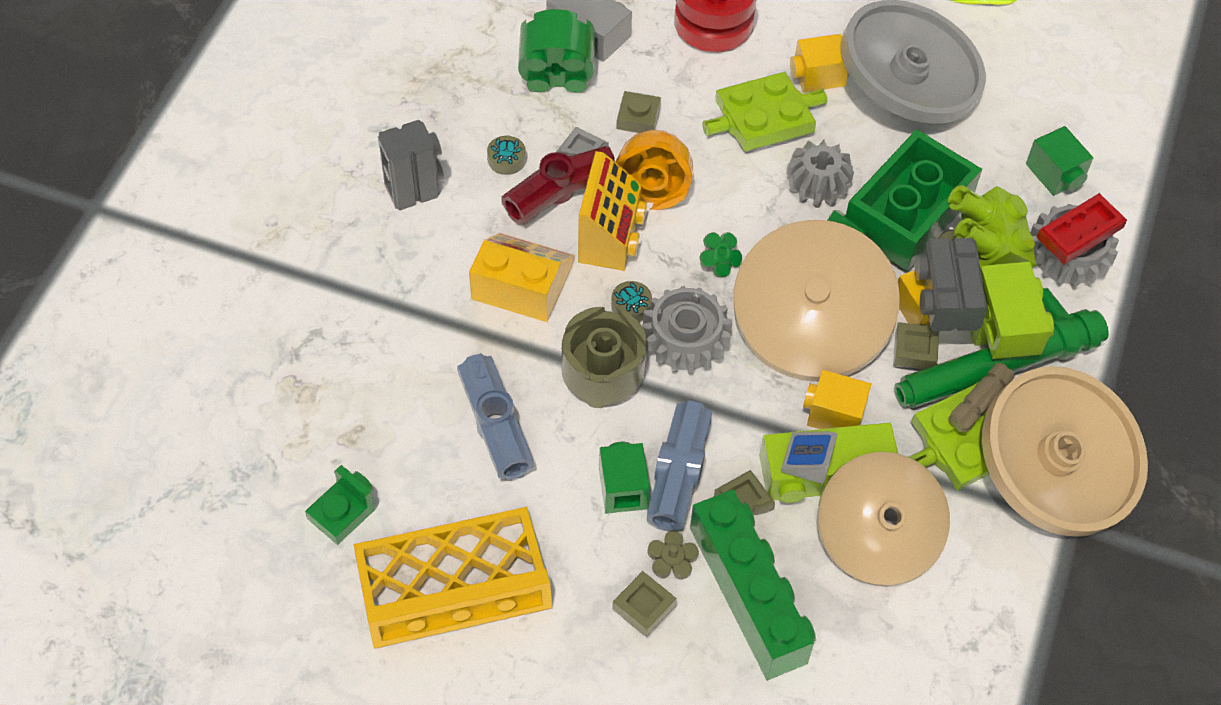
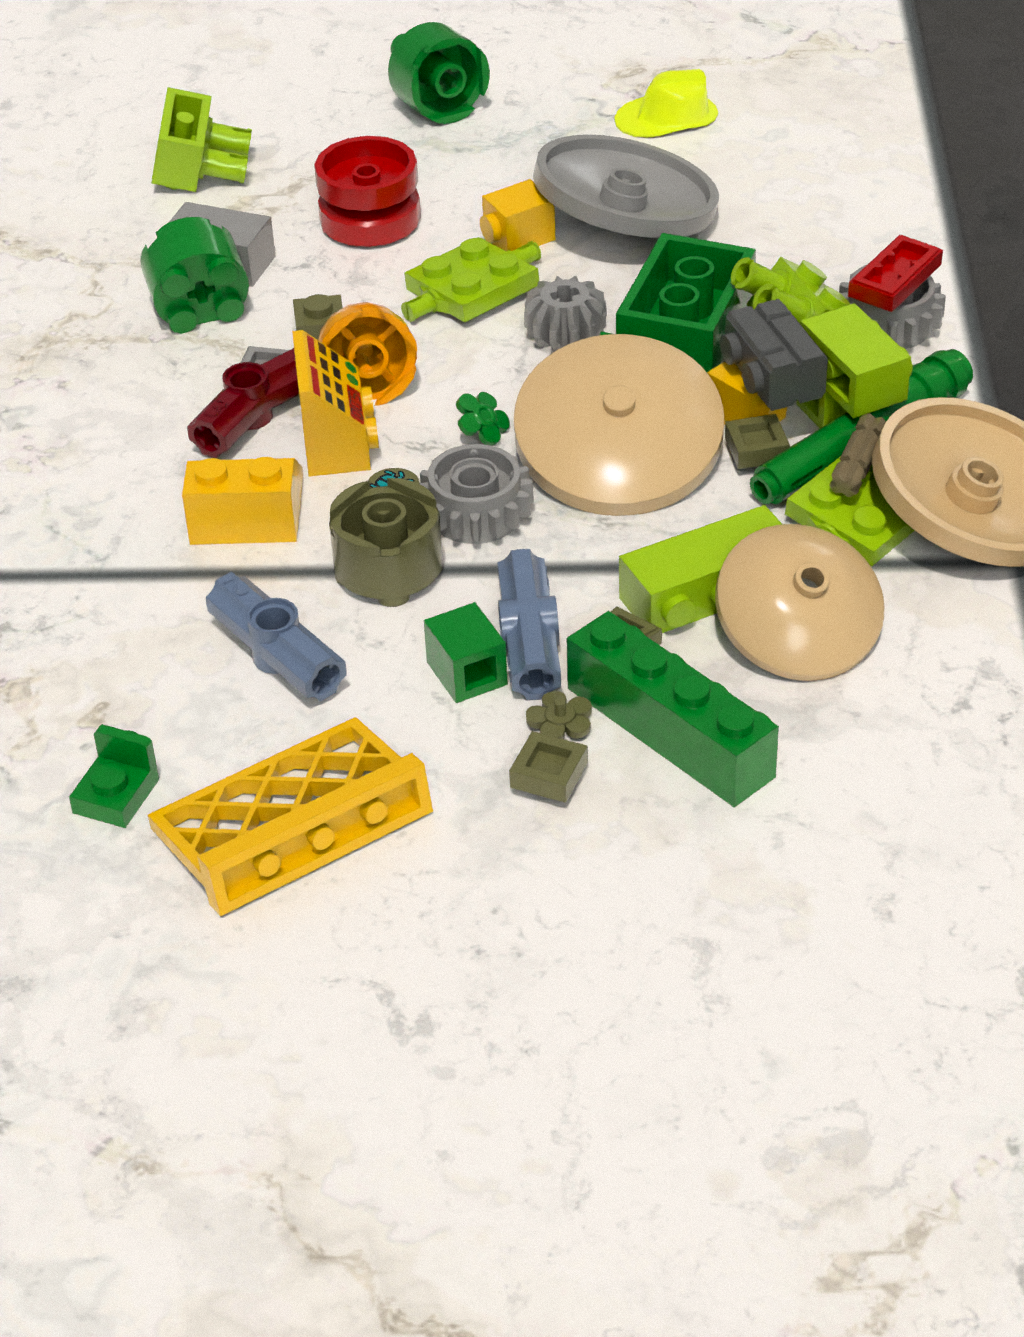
camera: 15 degrees left, 15 degrees down
(410, 164) = (59, 418): dark grey brick -> none
(506, 154) = (172, 395): tile -> none
(809, 455) = (686, 552): slope -> none
(836, 401) = (687, 504): yellow brick -> none
(1059, 161) = (837, 237): green brick -> none

